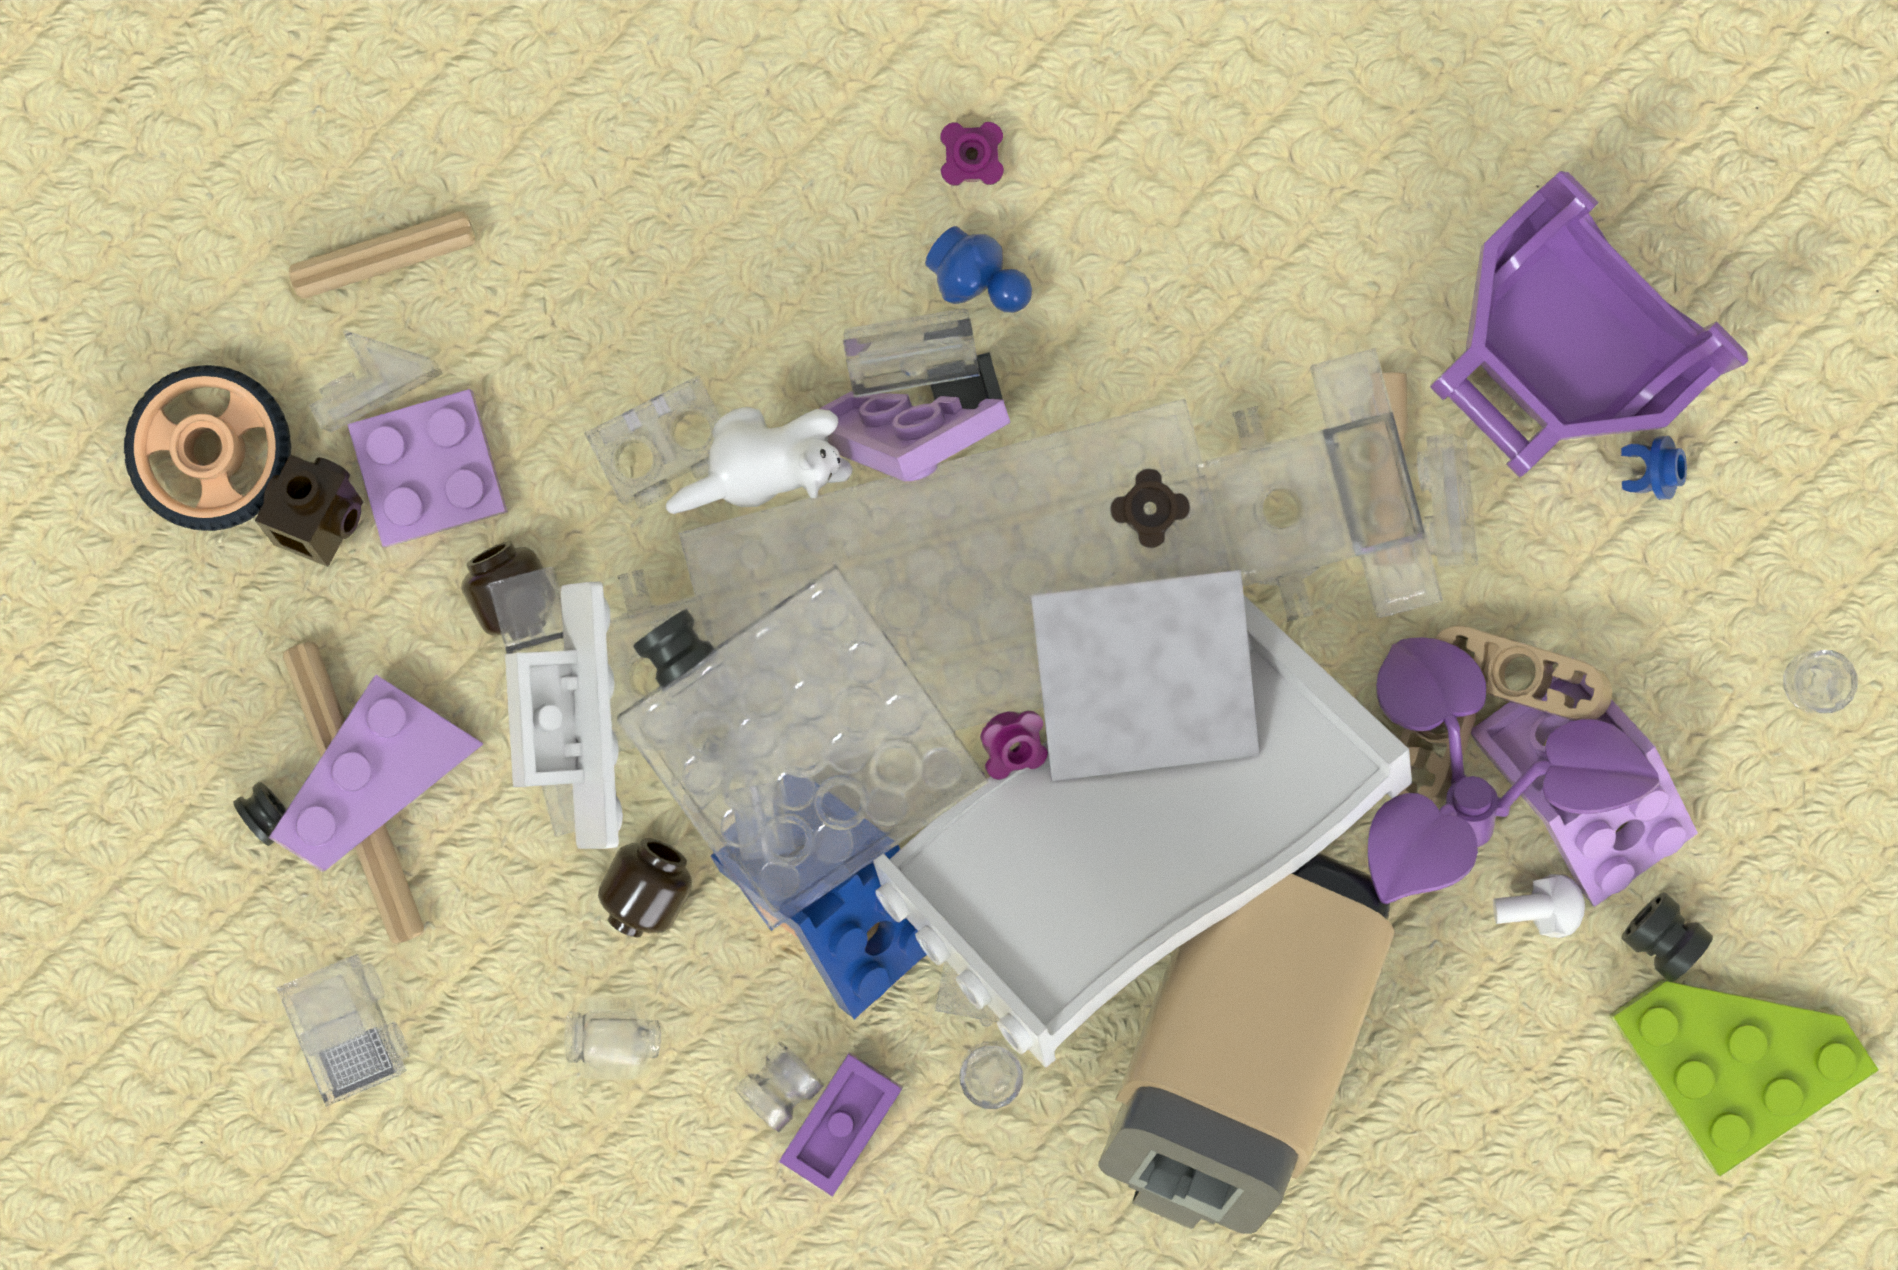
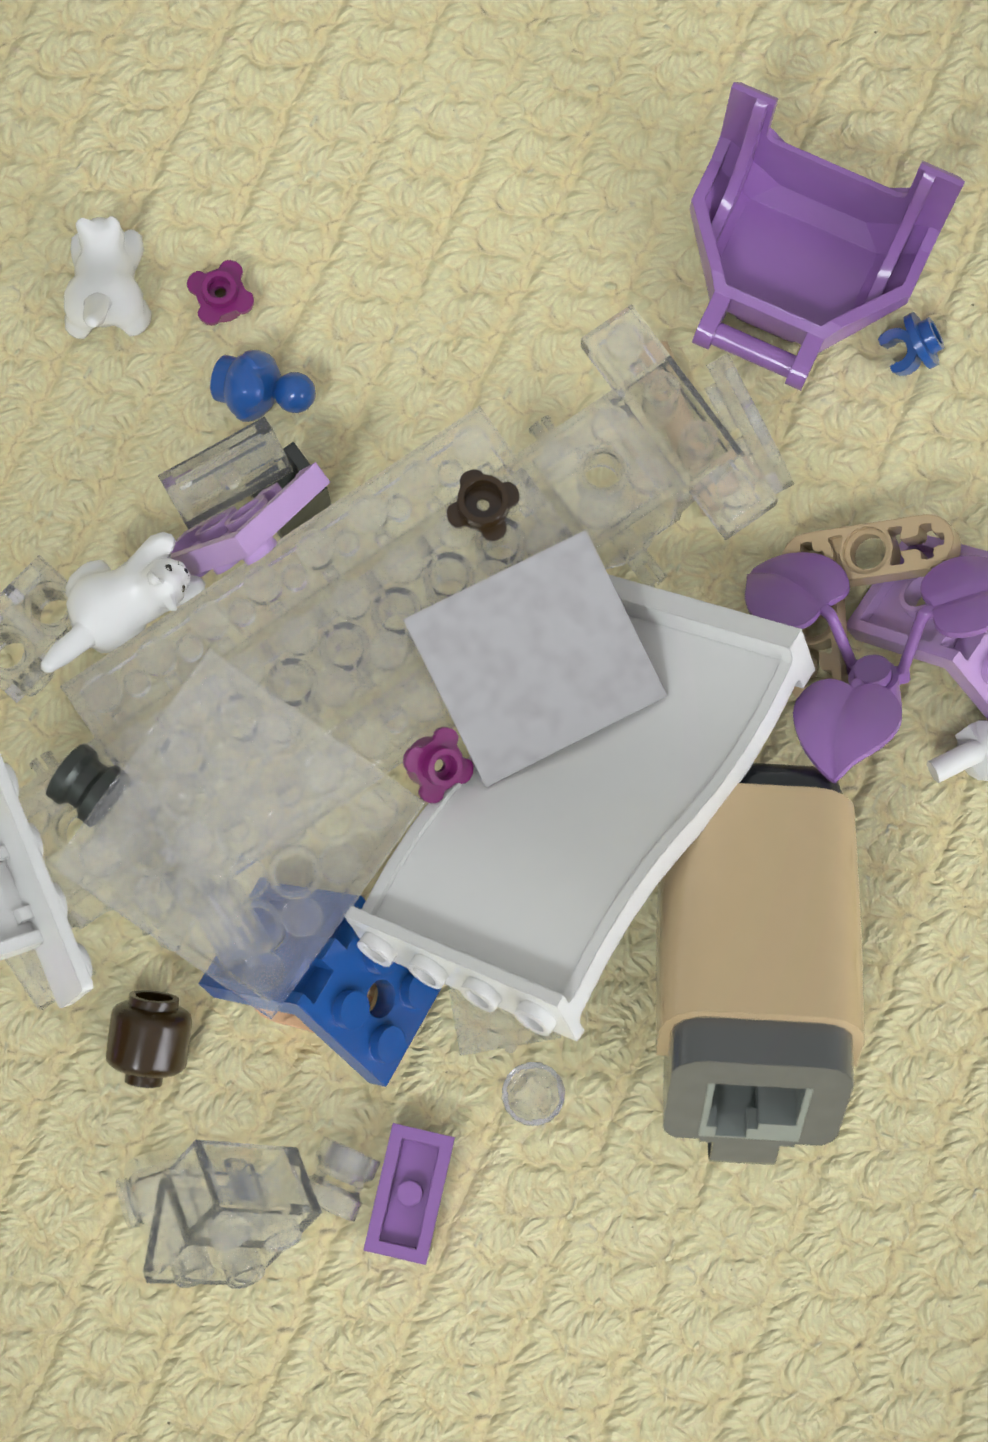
camera: 25 degrees left, 10 degrees down
(666, 1085) = (227, 1214): none -> clear slope
(854, 110) = (104, 281): none -> white animal

